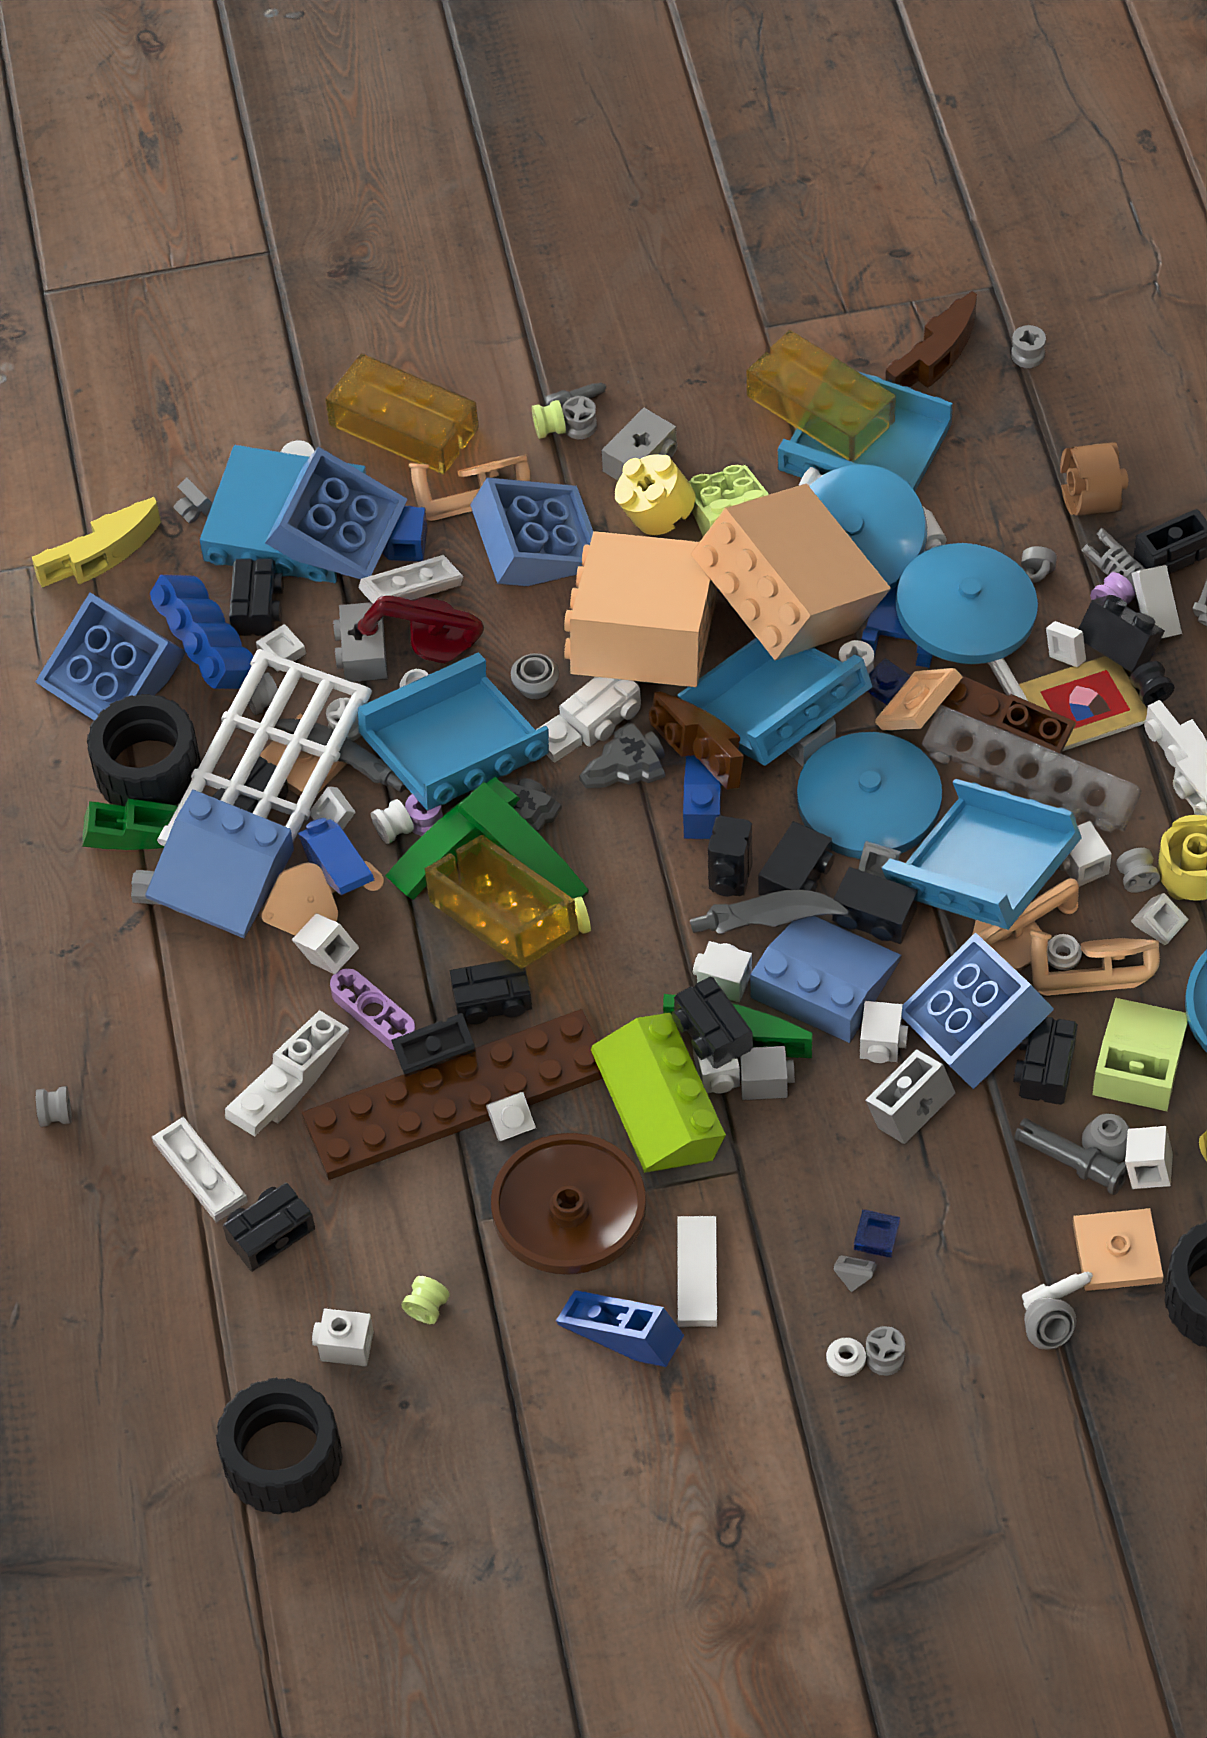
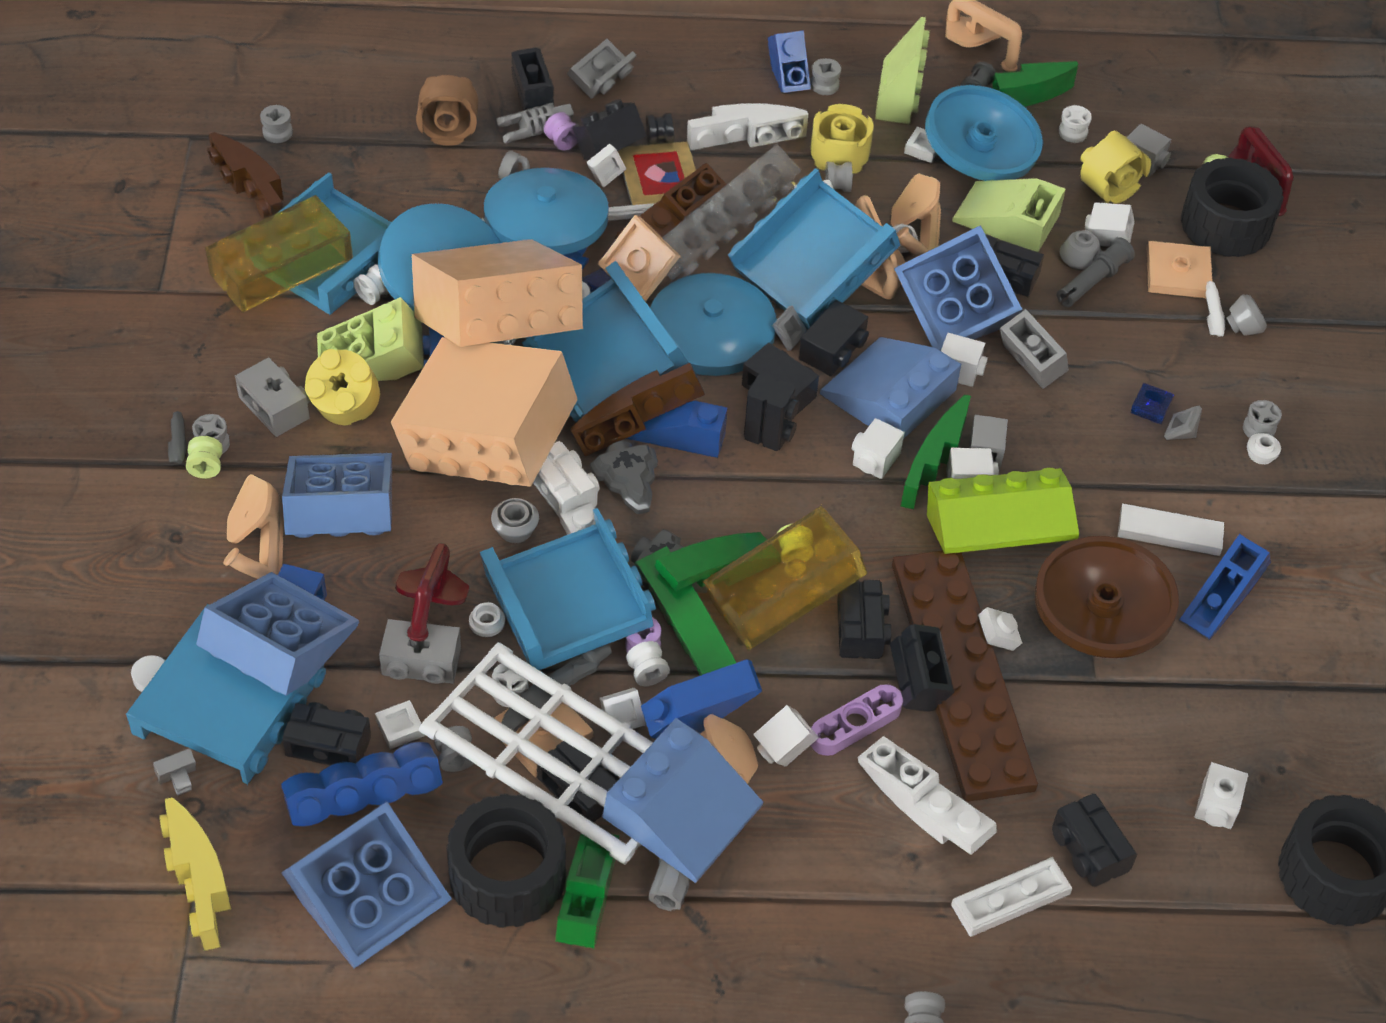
camera: 85 degrees left, 5 degrees down
(402, 413) = (142, 569): clear yellow piece -> none
(413, 580) = (366, 596): white tile -> none
(425, 1299) = (1187, 726): yellowish green wheel -> none
(712, 1022) = (954, 448): black brick -> none
(767, 910) = (826, 403): dark grey sword -> none
(1157, 598) = (576, 102): white slope -> none
(1160, 918) = (879, 181): white slope -> none

